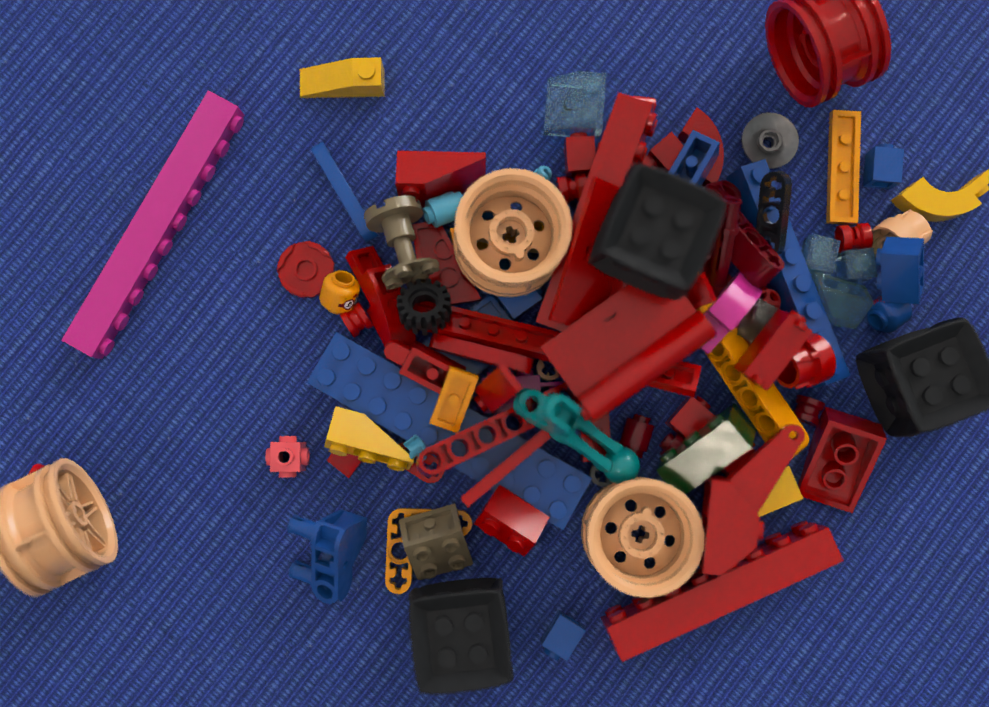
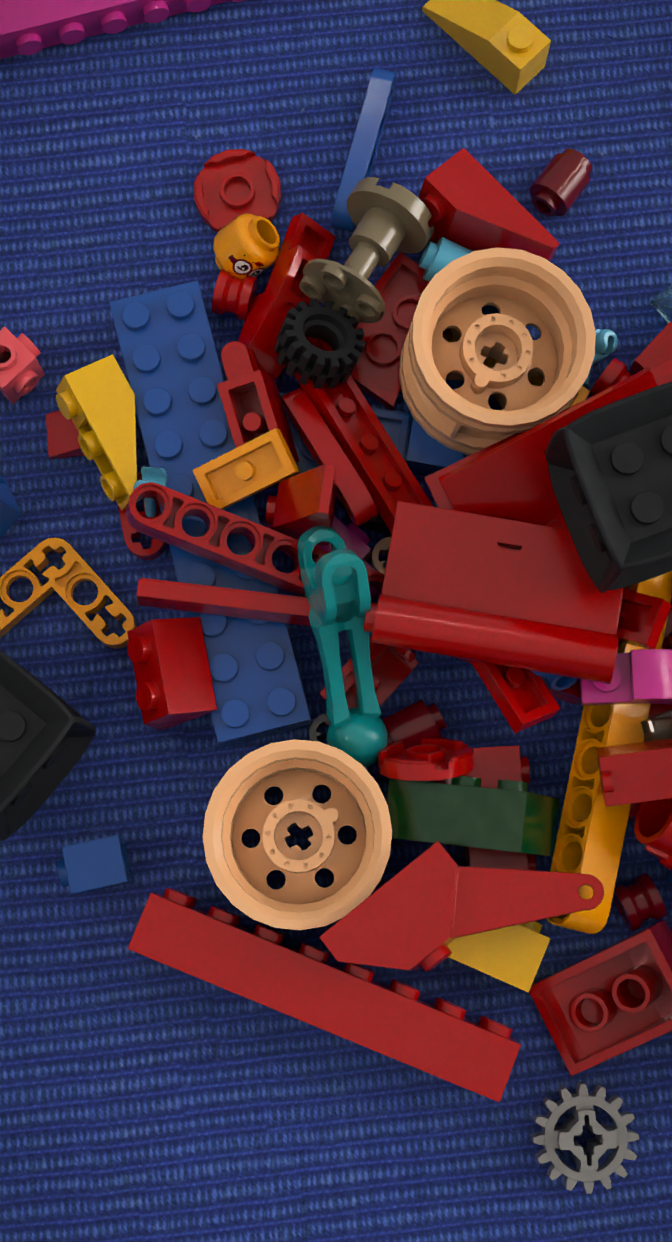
camera: 50 degrees right, 5 degrees down
(435, 542) = (65, 616): dark tan bracket -> none
(449, 119) = (561, 183): none -> dark red brick
(663, 445) = (428, 761): none -> red tile
(896, 528) = (605, 1138): none -> light grey gear

